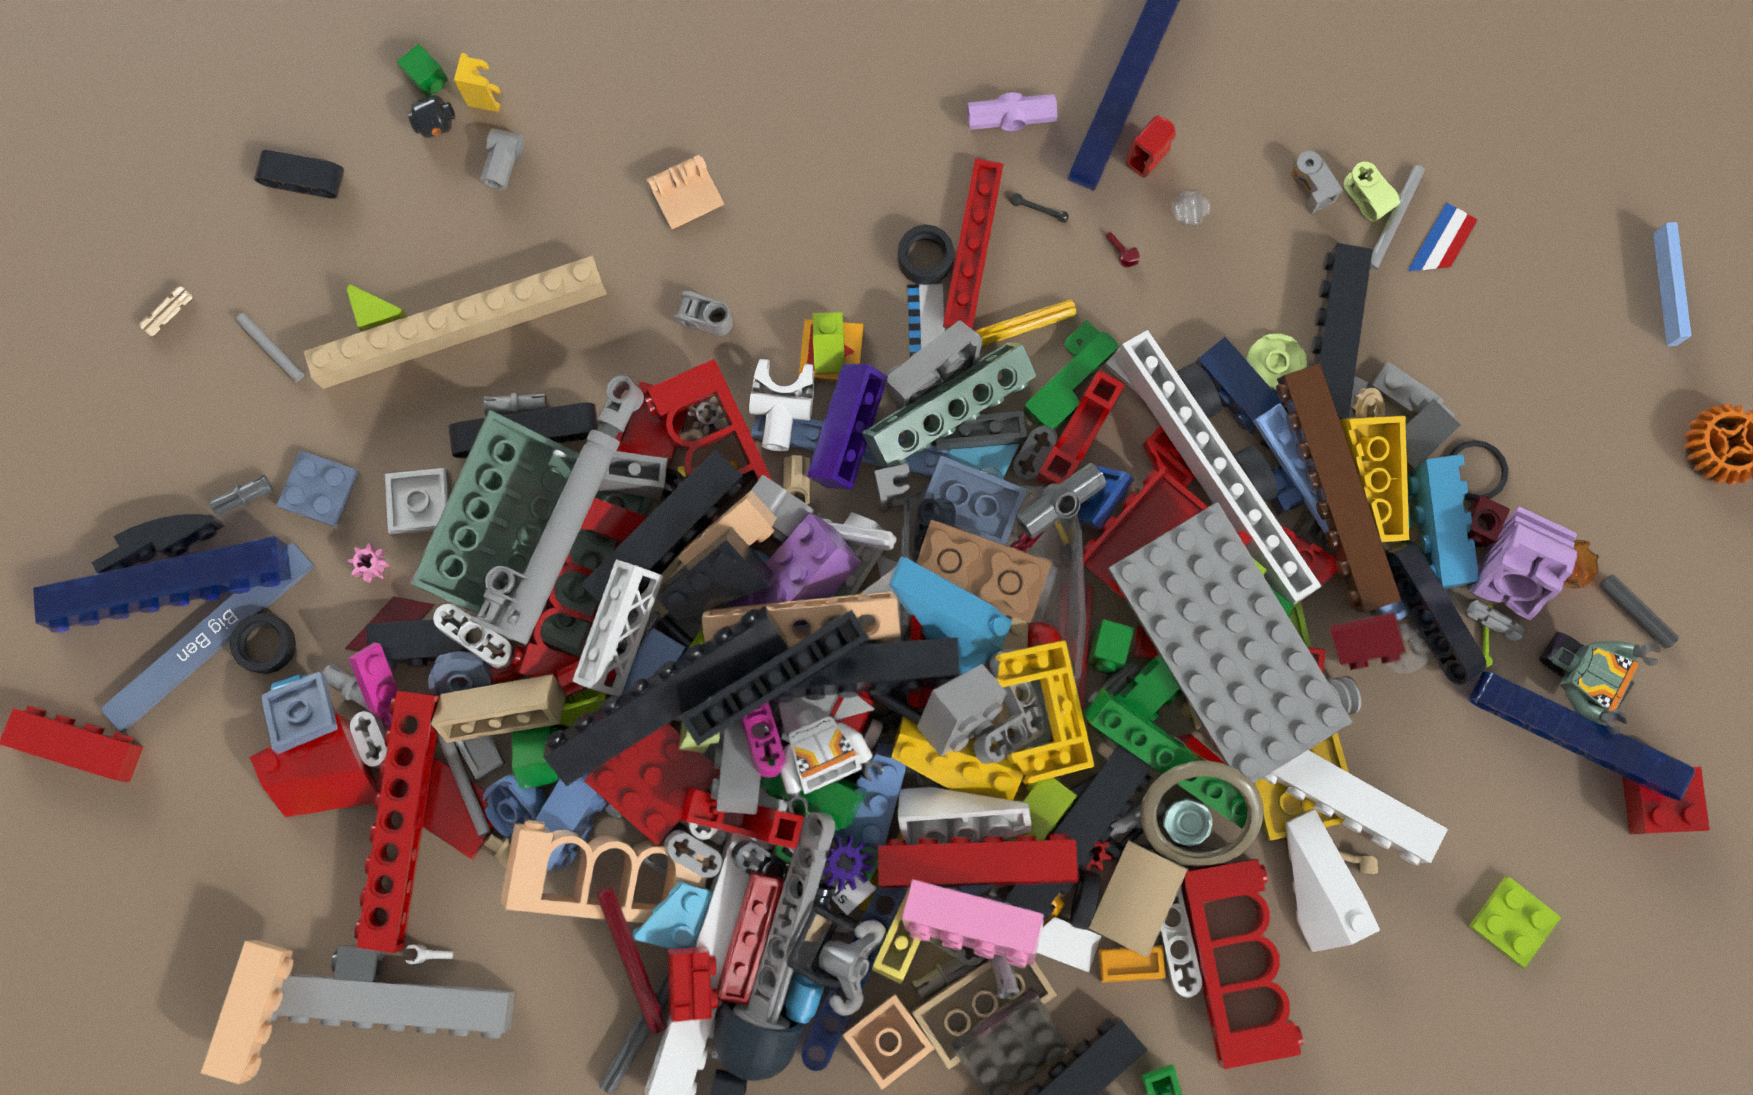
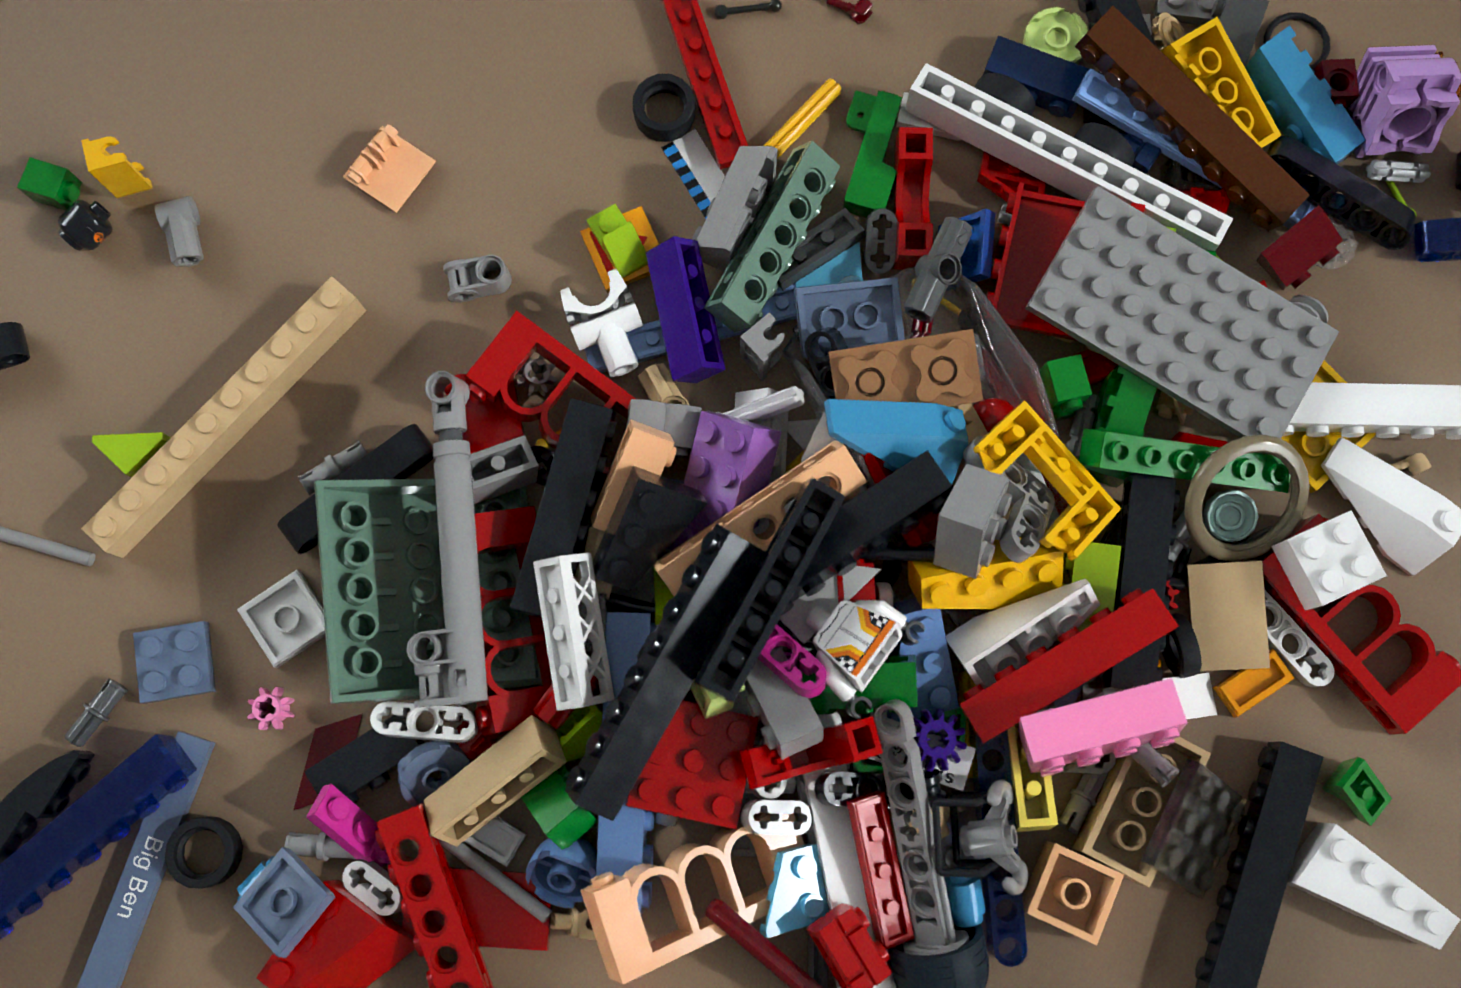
camera: 30 degrees left, 0 degrees up
(1239, 898) = (1328, 561): none -> white brick

